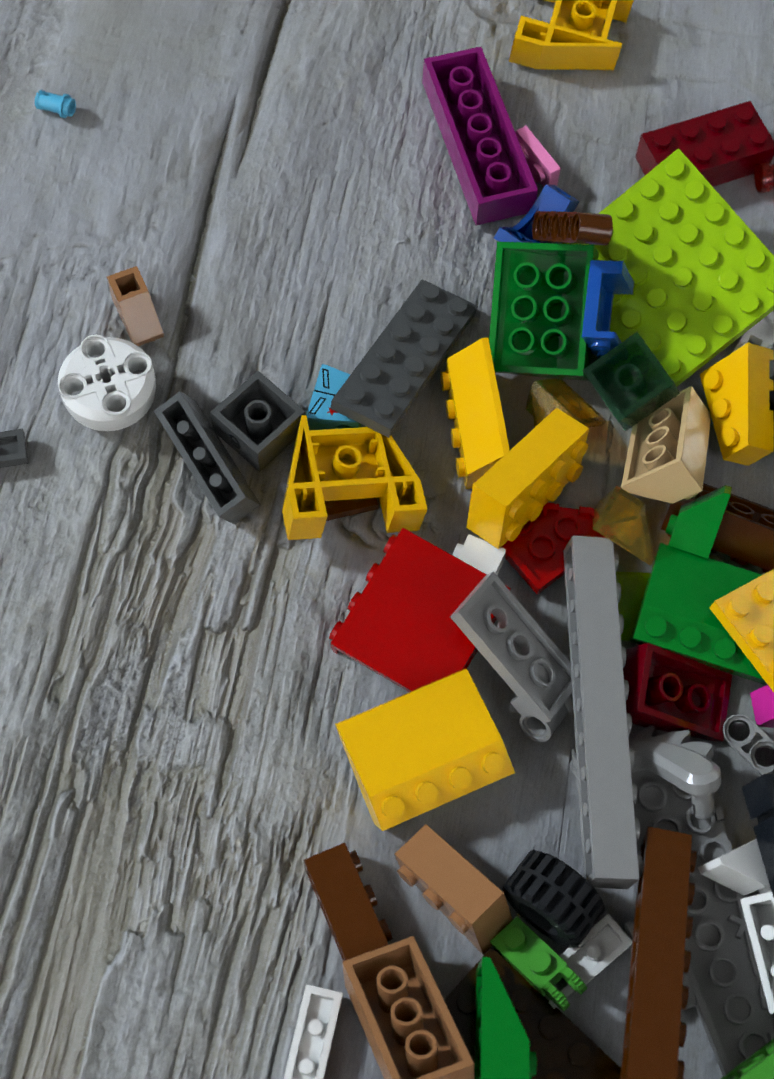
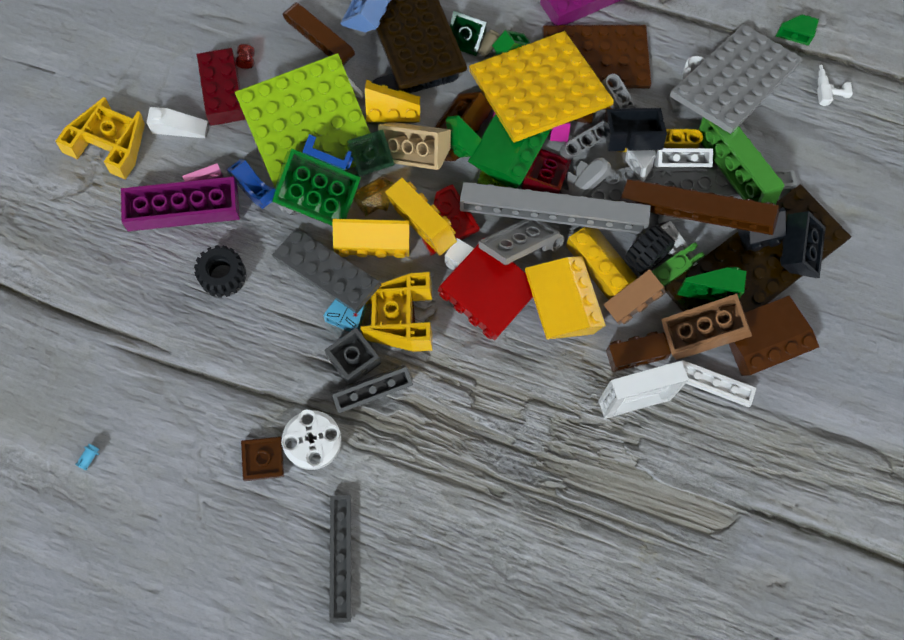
camera: 80 degrees left, 5 degrees up
(70, 321) = (262, 458): none -> reddish brown plate
(135, 306) = (259, 419): medium nougat slope -> none
(251, 899) = (643, 389): none -> white window
(379, 190) = (213, 259): none -> black tyre
(521, 816) = (601, 260): none -> yellow slope
(572, 227) = (278, 157): reddish brown beam -> none
(621, 104) = (175, 123): none -> white slope
(626, 523) = (454, 175): clear yellow slope -> none

